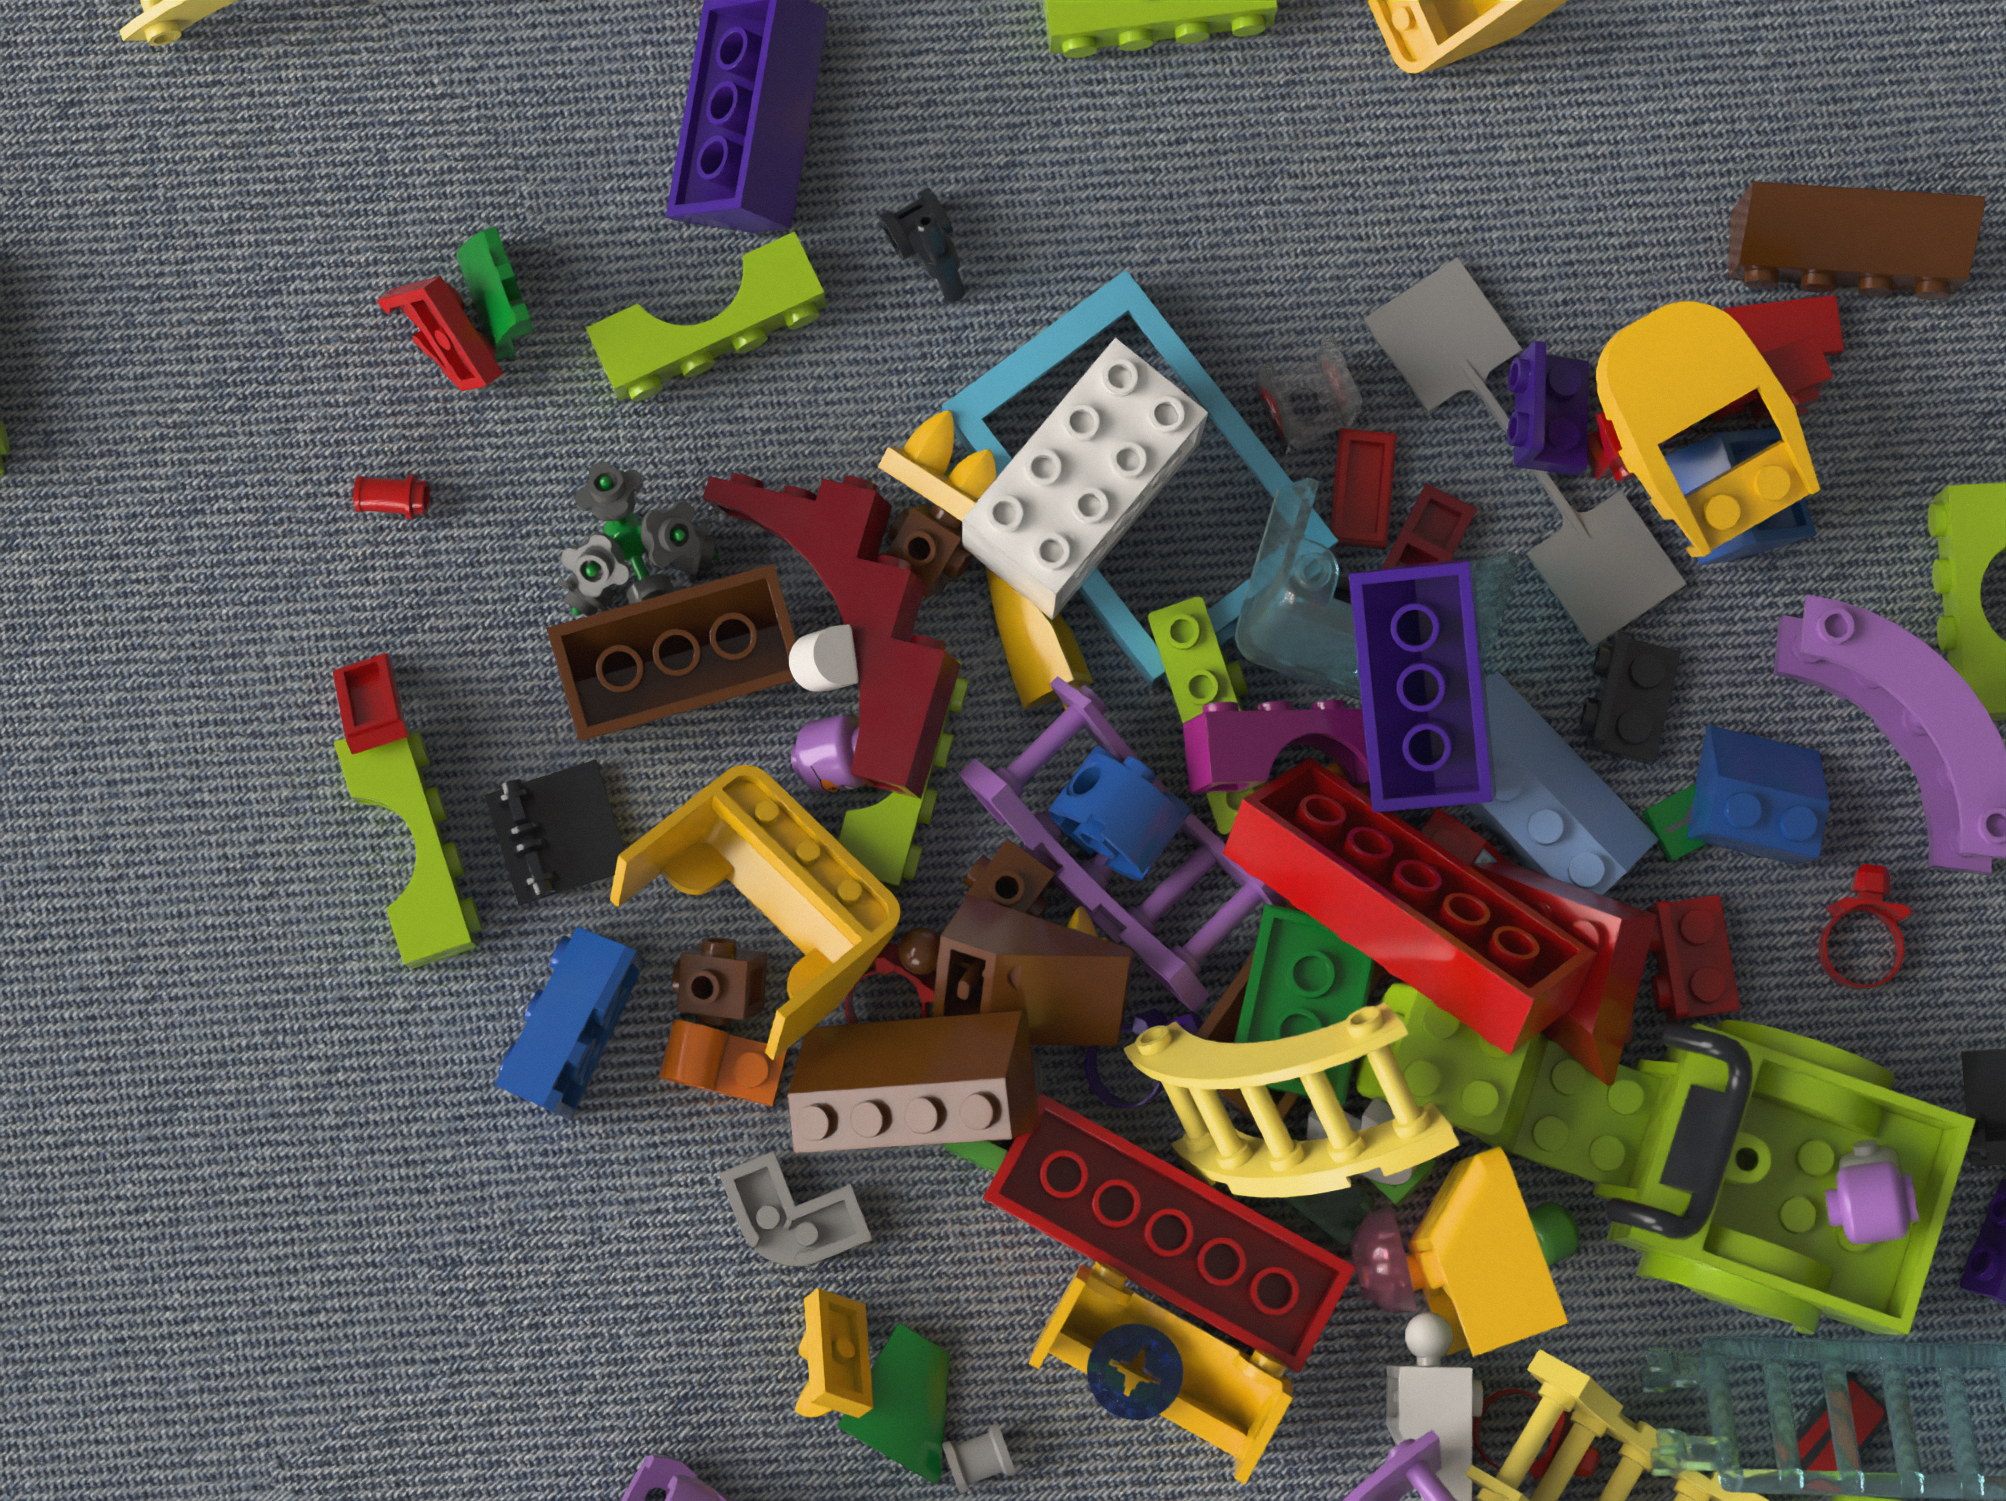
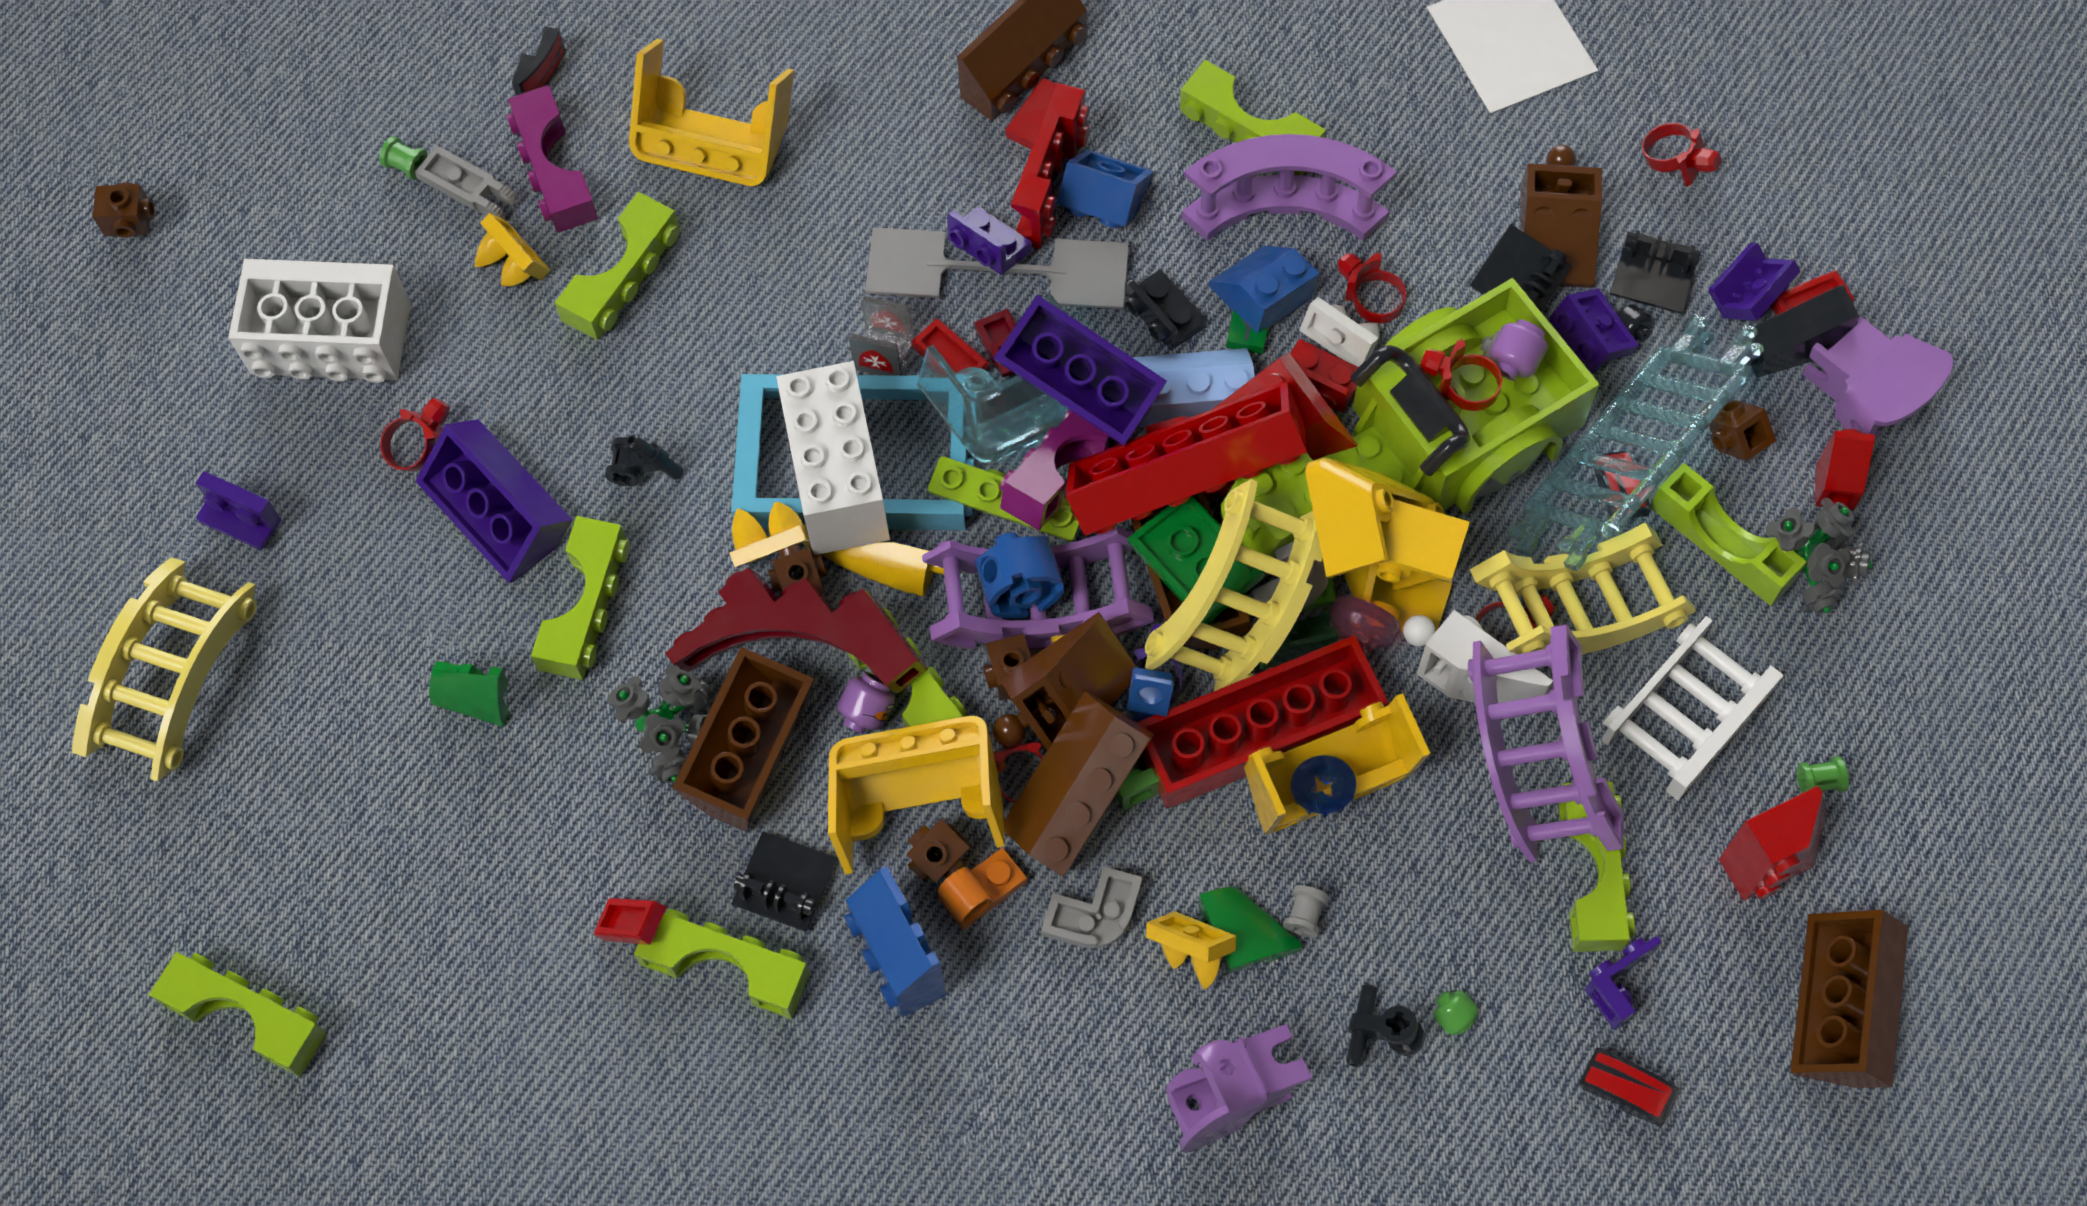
camera: 45 degrees left, 15 degrees down
(392, 495) = (528, 829): red pin -> none
(445, 331) = (465, 732): red wing -> none
(825, 659) = (814, 657): white brick -> none
(1093, 1080) = (1149, 693): none -> blue bracket
(1480, 1166) = (1349, 512): none -> yellow windscreen
(1676, 372) = (1021, 153): yellow slope -> none
(1765, 960) = (1339, 333): none -> white tile
(1768, 1116) = (1436, 363): none -> red piece

